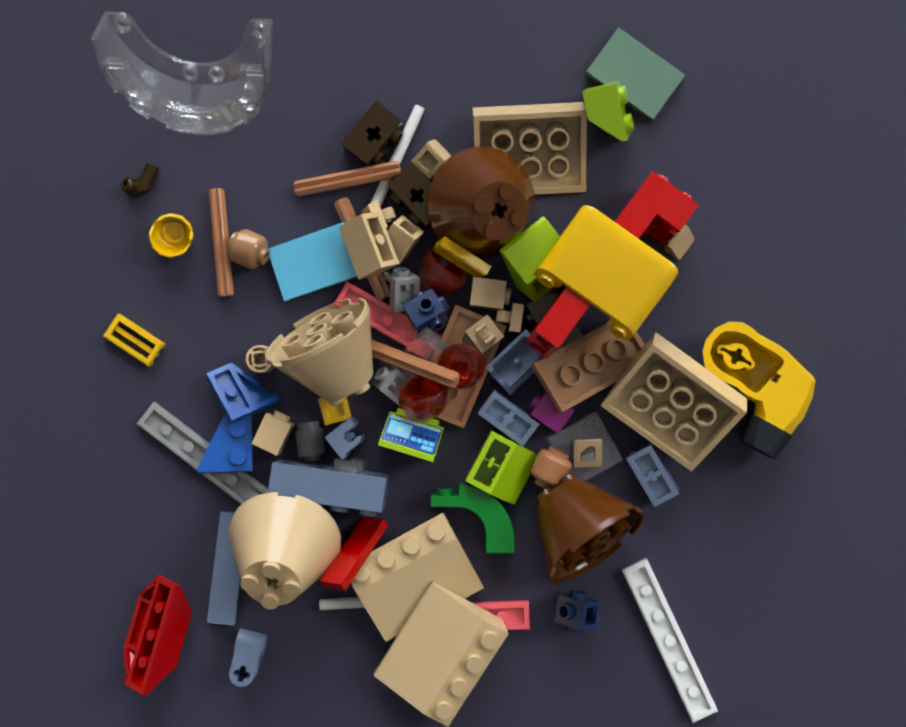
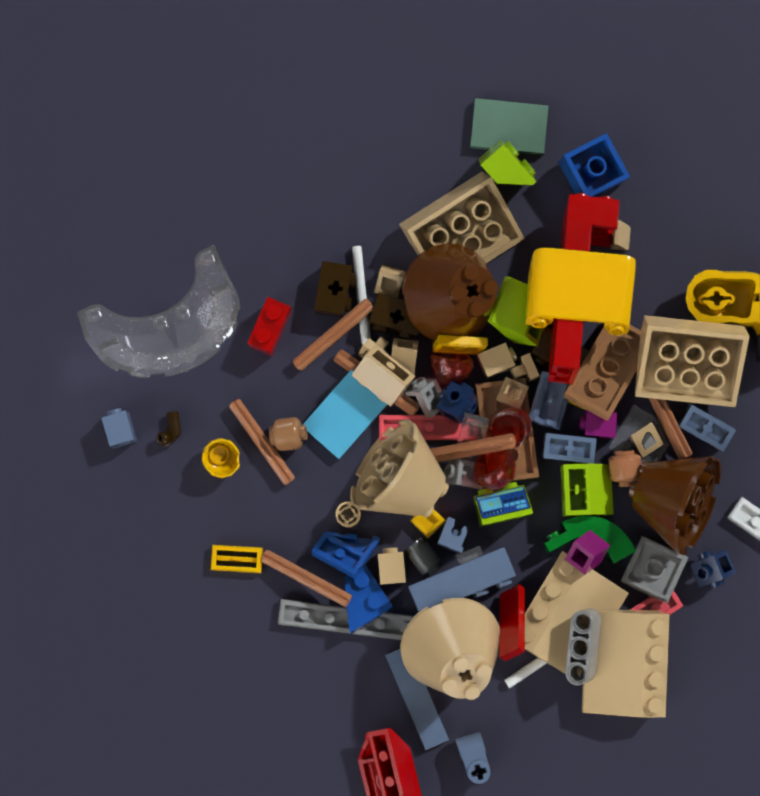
camera: 35 degrees left, 5 degrees down
(91, 151) = (118, 428): none -> sand blue brick
(186, 396) = (306, 578): none -> nougat axle
(290, 135) = (270, 326): none -> red brick
(396, 622) = (590, 636): none -> light grey beam
(464, 528) = (587, 552): none -> magenta brick
(521, 579) = (654, 569): none -> light grey tile
(618, 456) = (671, 428): none -> nougat axle
(693, 160) = (594, 167): none -> blue brick

